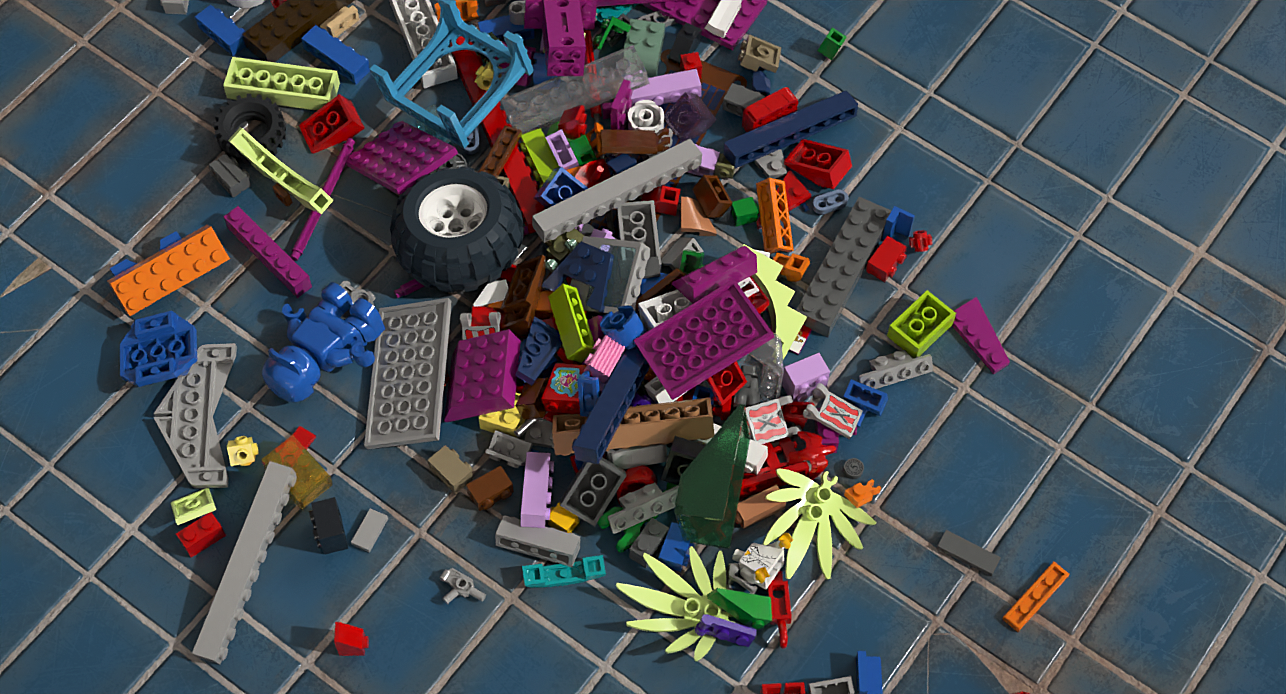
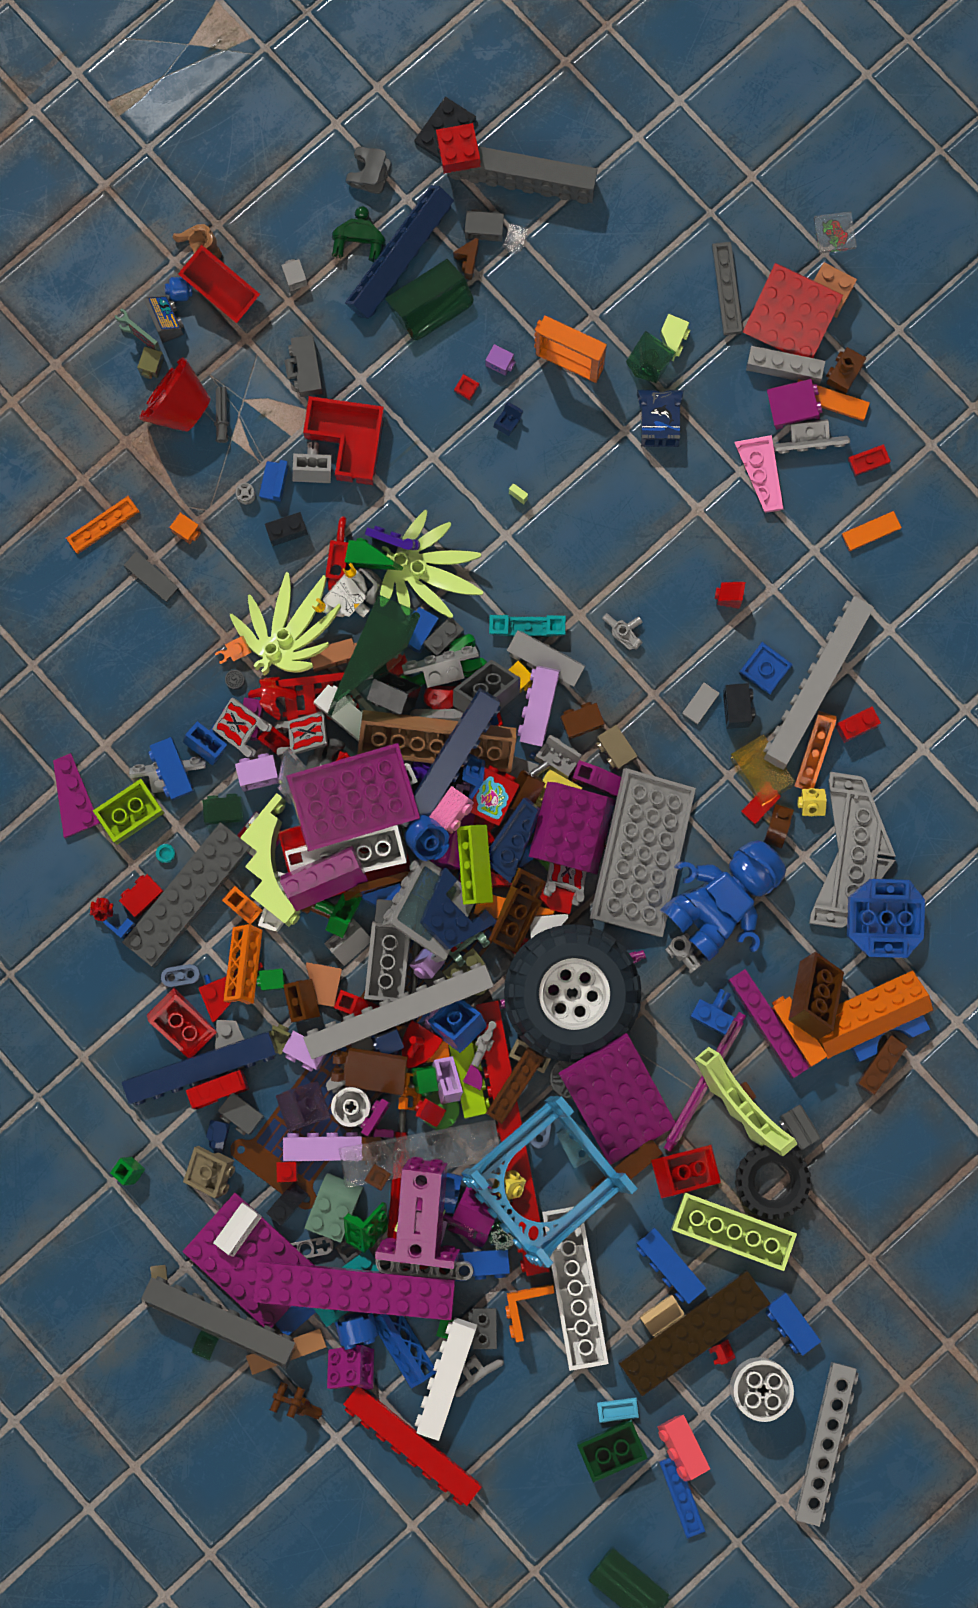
camera: 165 degrees left, 20 degrees up
(159, 226) = (881, 1065): none -> reddish brown brick
(193, 506) = (863, 753): yellowish green tile -> none
(221, 267) = (816, 996): none -> reddish brown brick
(238, 245) = (806, 1044): none -> orange window
(242, 502) = (815, 750): none -> orange slope
(274, 423) = (778, 826): none -> reddish brown brick
(305, 577) = (765, 668): none -> blue tile
(321, 249) = (713, 1014): none -> blue brick
(382, 123) = (636, 1161): none -> reddish brown tile
(465, 435) = (597, 778): none -> magenta slope
(533, 183) = (484, 1043): none -> light grey piece
(538, 157) = (473, 1077): none -> magenta tile
(608, 56) = (377, 1177): none -> reddish brown tile
(831, 344) = (223, 809): none -> clear green brick
(841, 623) = (286, 529): none -> black brick
(875, 301) = (165, 853): none -> teal tile
(891, 362) = (171, 769): none -> blue brick
(897, 650) = (245, 489): none -> light grey wheel
(947, 605) = (185, 528): none -> orange brick

